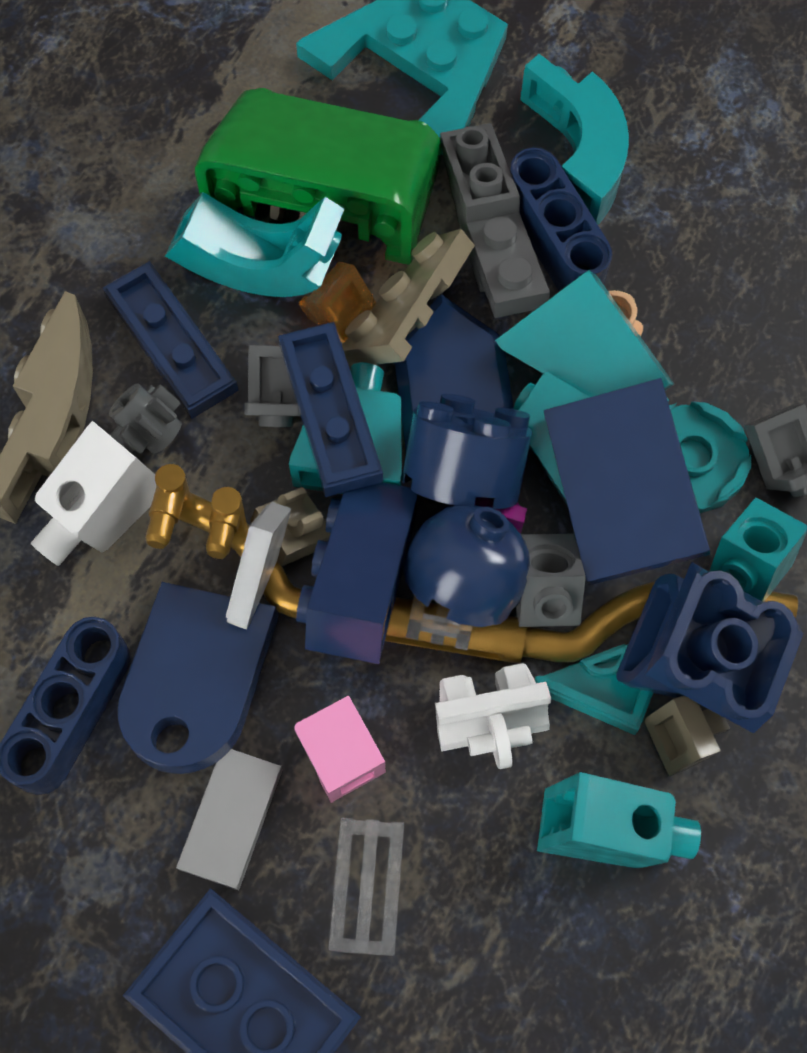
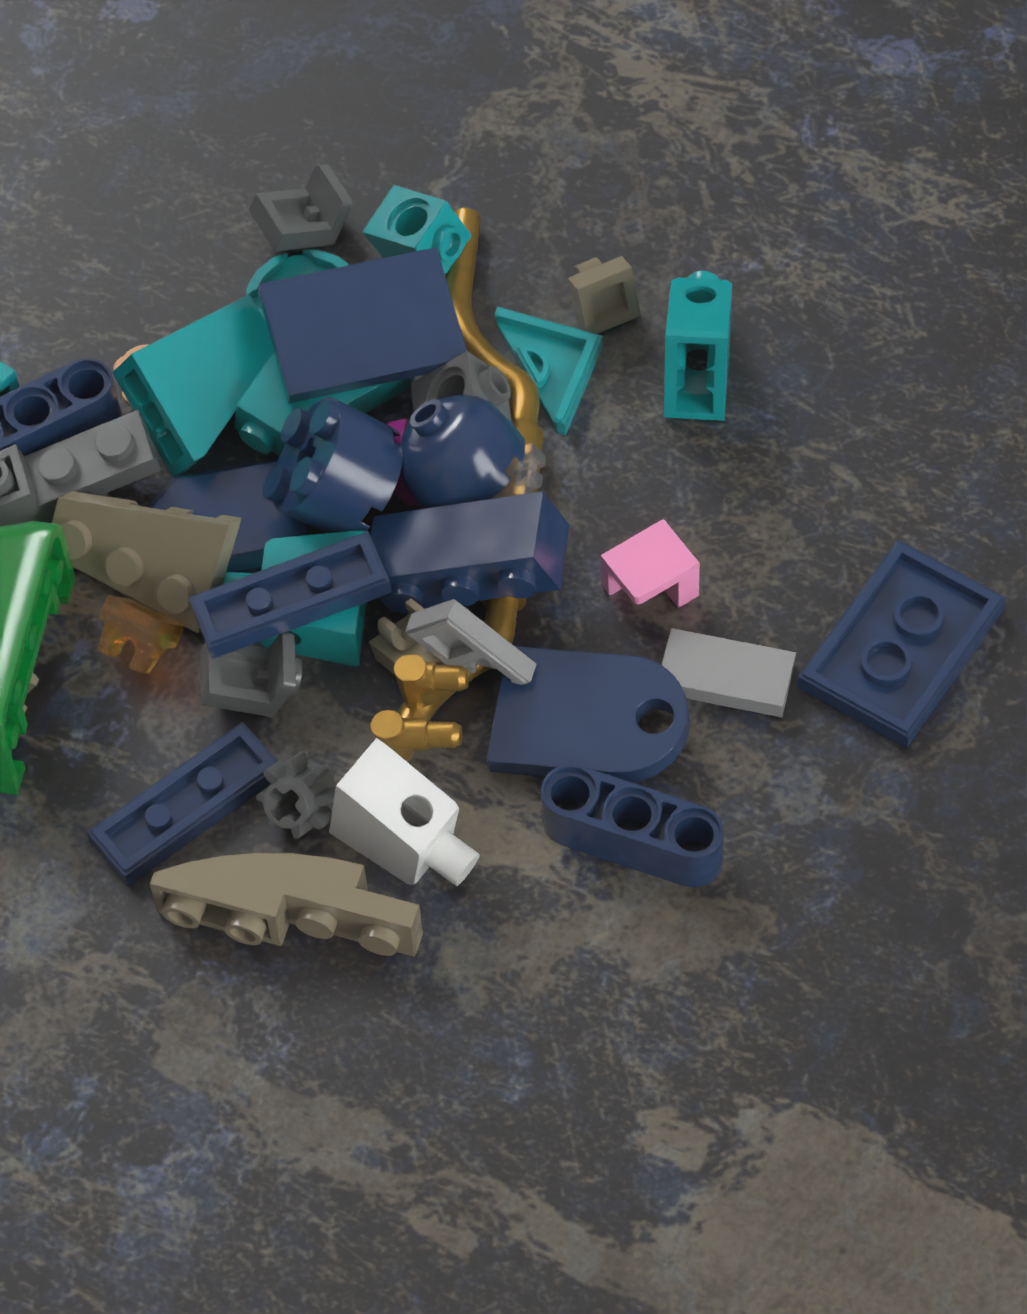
camera: 90 degrees left, 10 degrees down
(254, 253) = (87, 697): teal arch -> none
(372, 830) = (777, 541): clear tile -> none
(492, 719) = (607, 444): white hips -> none
(712, 646) = (522, 262): dark blue piece -> none

